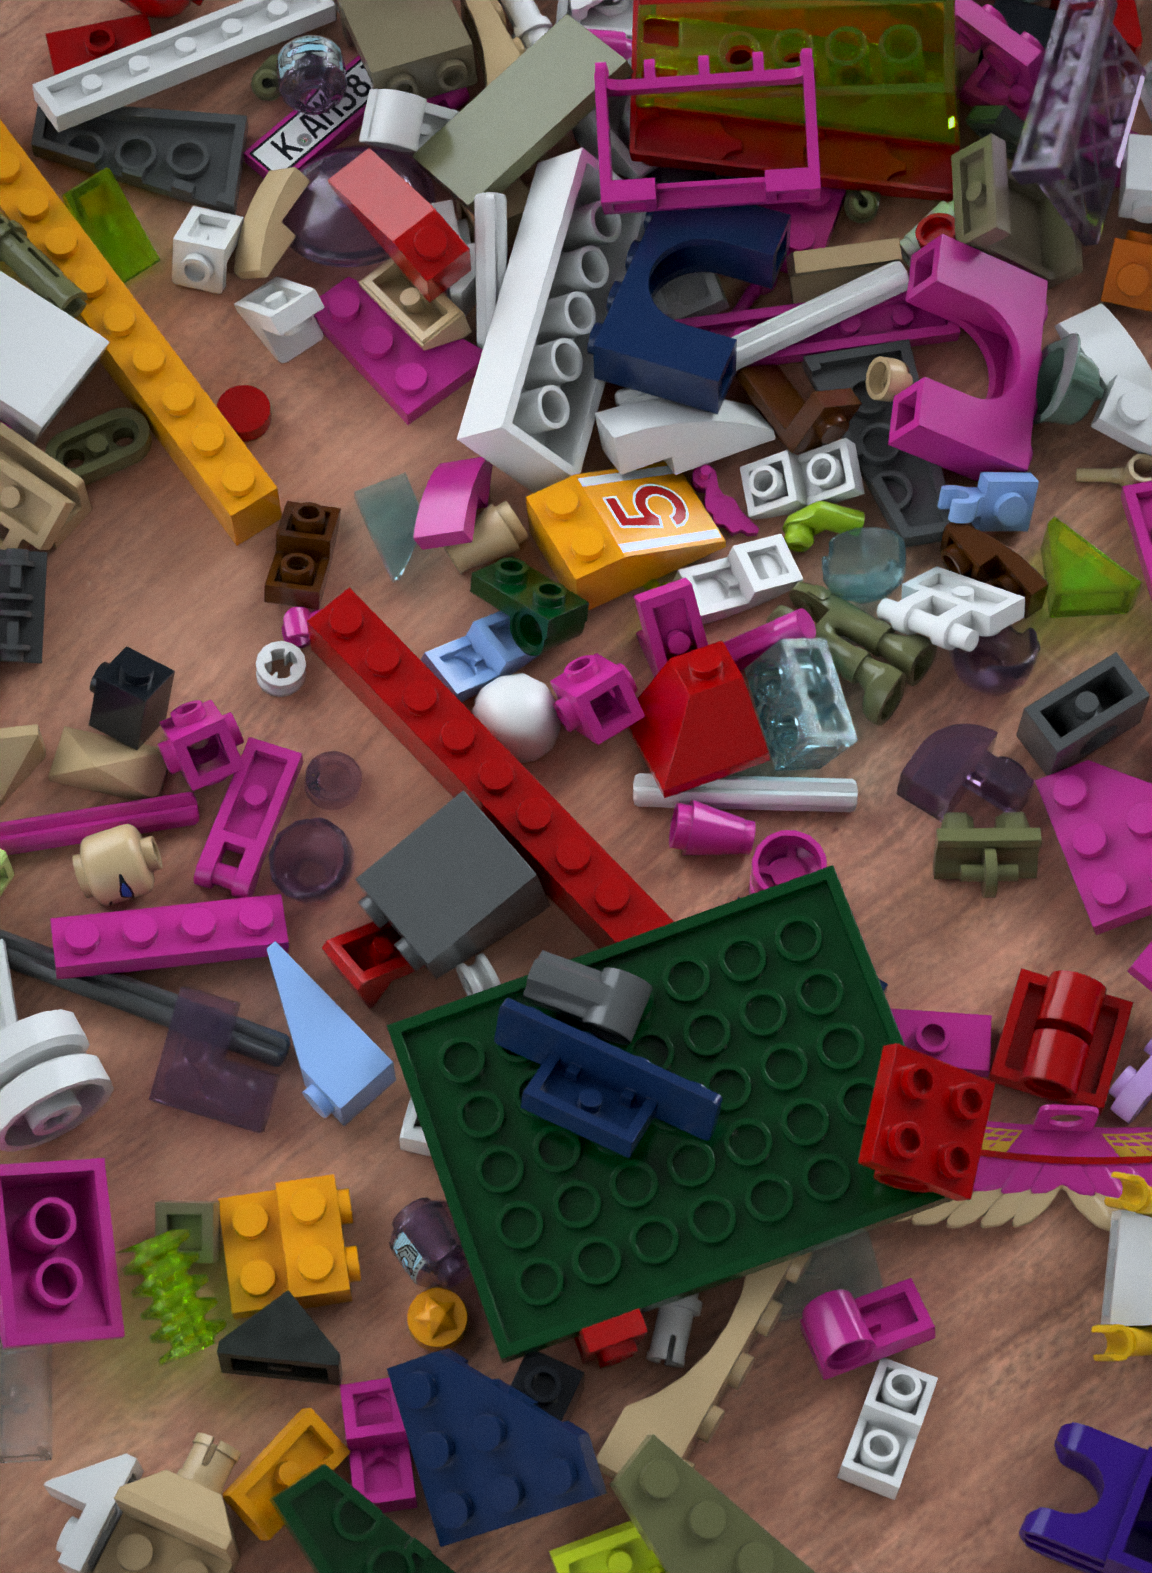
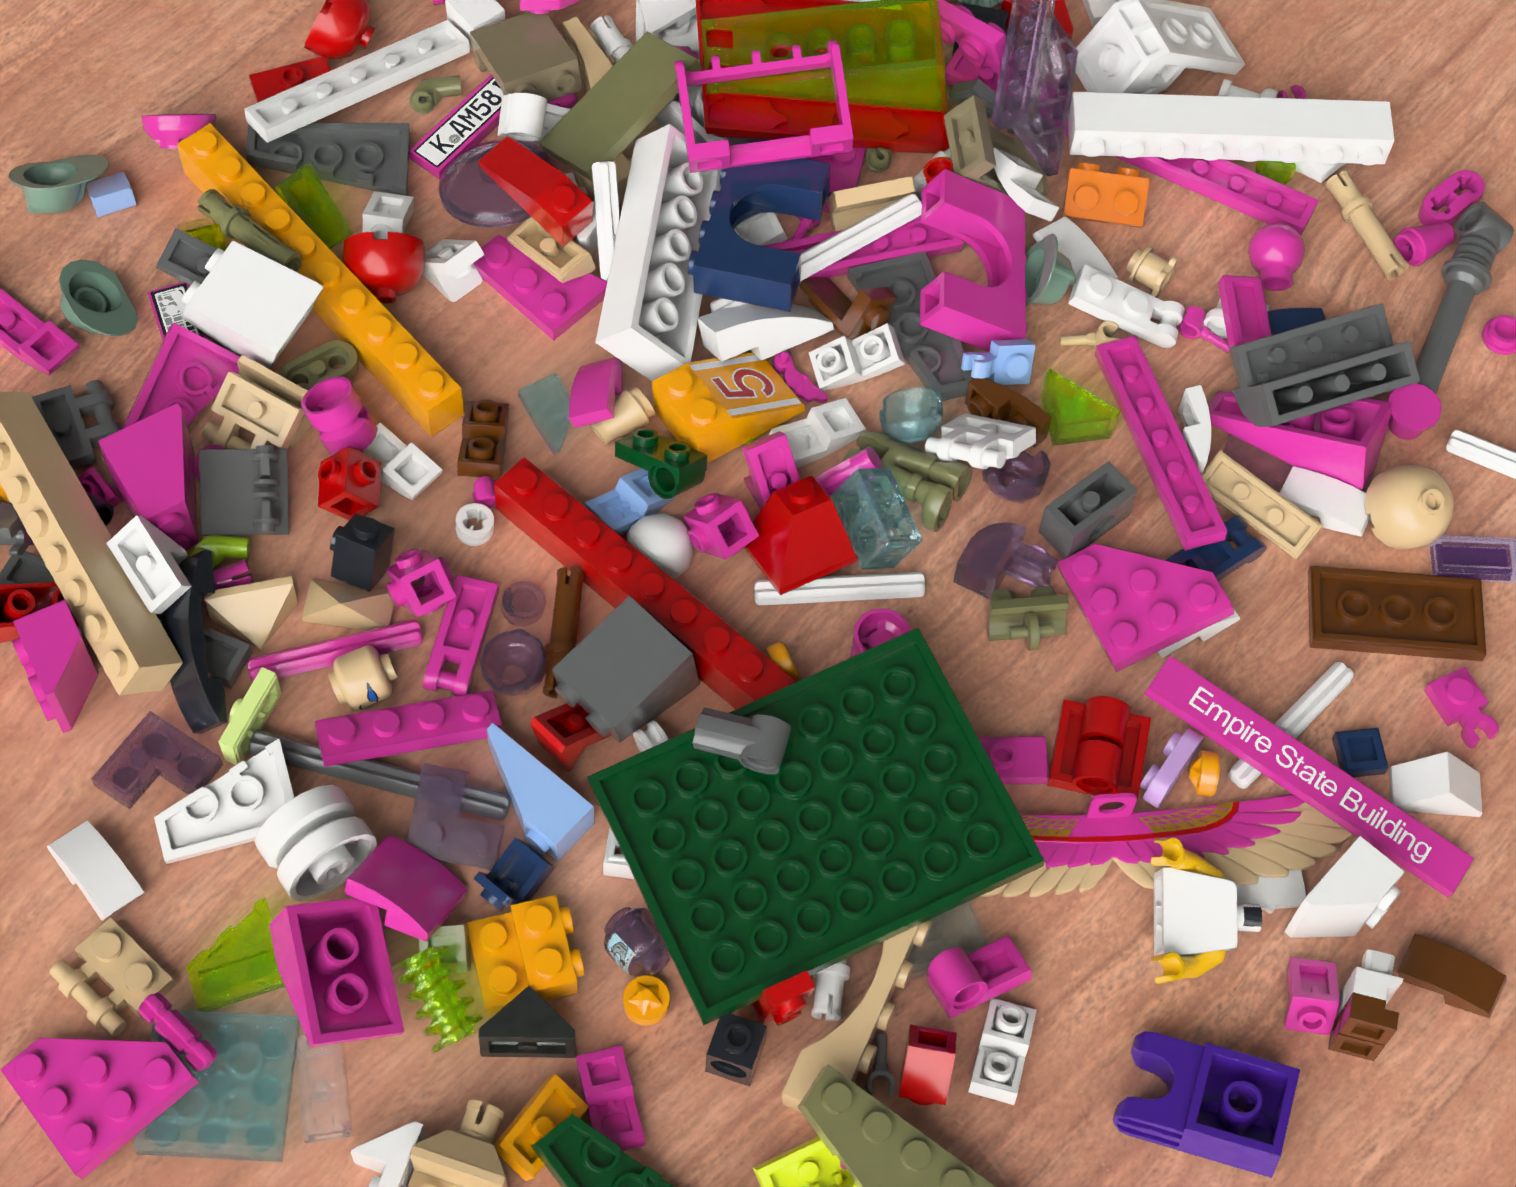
camera: 10 degrees left, 5 degrees down
(118, 514) = (339, 415): none -> dark pink wheel
(123, 603) = (349, 483): none -> red brick
(147, 1147) = (409, 886): none -> dark pink slope
(186, 577) = (402, 466): none -> white slope
(196, 311) = (385, 265): none -> red cylinder
(246, 411) = (431, 336): red tile -> none
(263, 234) = (430, 205): tan slope -> none
(284, 1143) = (514, 876): none -> dark blue bracket
(311, 74) = (456, 89): clear purple head -> none
(382, 810) = (563, 623): none -> reddish brown pin
(487, 1448) = (698, 1091): dark blue plate -> none
(598, 1086) = (758, 804): dark blue bracket -> none
(660, 886) = (781, 657): none -> light orange tile
(709, 831) = (815, 618): dark pink cone -> none
(728, 1432) = (881, 1066): none -> dark grey hand
(786, 1440) = (927, 1065): none -> red brick
(816, 518) = (871, 384): lime arm -> none
(887, 378) = (913, 278): tan hinge -> none
(925, 1124) = (1012, 810): red plate -> none
(1044, 254) = (1021, 182): none -> white slope

